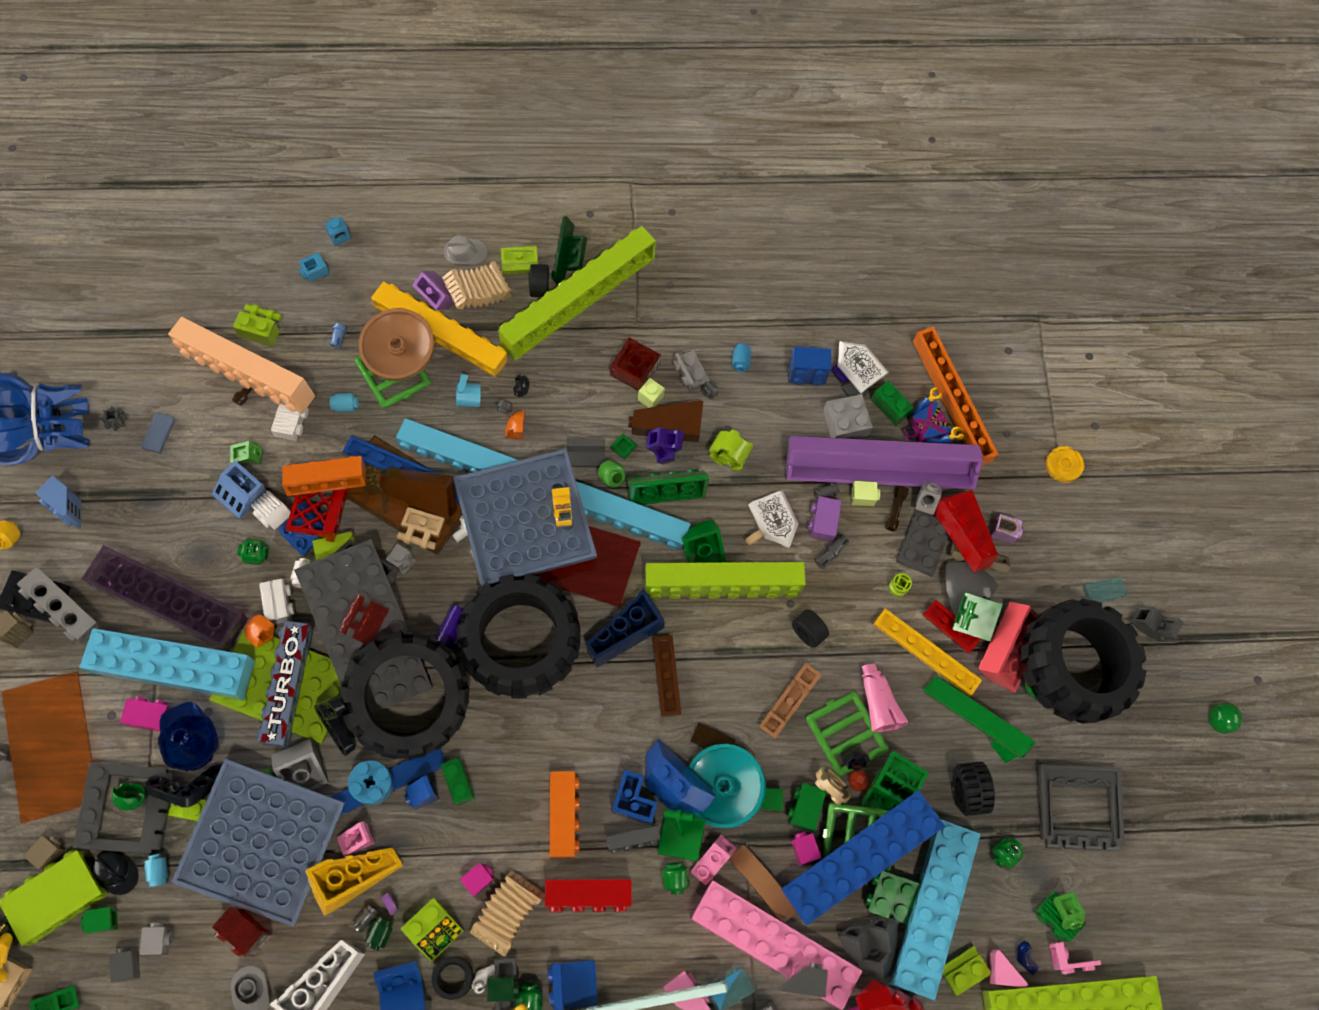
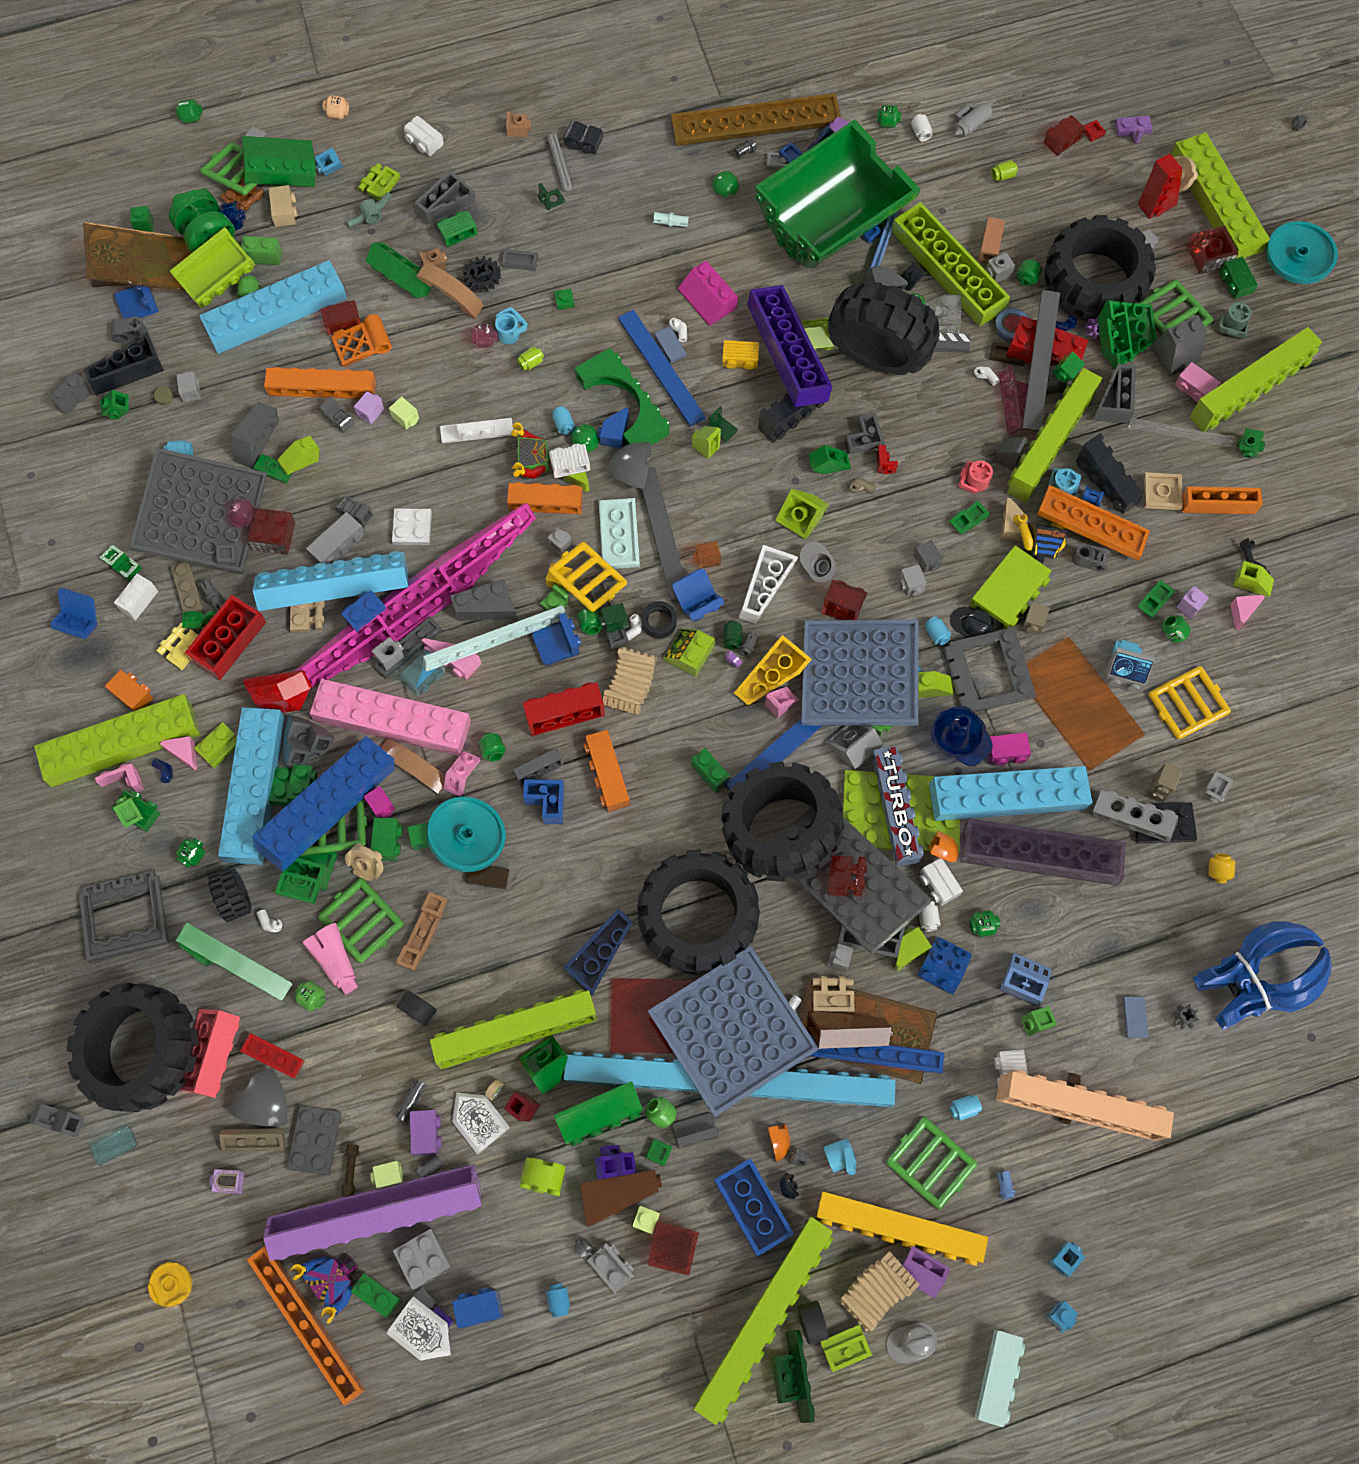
camera: 170 degrees right, 0 degrees up
(60, 501) = (1185, 912): medium blue slope -> none
(99, 920) = (964, 582): green brick -> none
(128, 796) = (989, 679): green hair -> none
(183, 794) = (942, 690): black beam -> none
(257, 328) = (1094, 1163): lime brick -> none
(270, 510) = (985, 965): white brick -> none
(324, 476) = (945, 1008): orange brick -> none
(328, 711) = (839, 784): black beam -> none
(332, 516) = (924, 992): red fence -> none
(364, 773) = (788, 734): dark azure brick -> none
(396, 344) = (936, 1186): medium nougat dish -> none
(407, 206) = (999, 1378): none -> light aqua brick
(420, 793) = (738, 751): blue slope -> none
(448, 630) = (768, 905): dark purple brick -> none
(478, 879) = (664, 698): dark pink brick -> none
(557, 376) = (753, 1207): none -> blue brick
(562, 506) = (697, 1046): yellow leg -> none
(666, 676) = (547, 922): reddish brown plate -> none
(674, 782) = (513, 826): blue wedge -> none
(681, 835) = (495, 782): green plate -> none
(734, 513) = (522, 1106): none -> dark red brick
(807, 981) = (356, 686): dark grey slope -> none
(856, 760) = (346, 892): black plate -> none
(858, 781) = (341, 879): clear red tile -> none
(898, 588) = (334, 1086): lime wheel -> none
(908, 671) = (310, 996): none -> bright green head
(927, 652) = (294, 1021): yellow plate -> none
(928, 504) = (317, 1189): light grey brick -> none
(937, 755) = (268, 924): none -> white arm
(967, 529) = (270, 1160): red wedge -> none
(977, 616) = (248, 1065): plate -> none

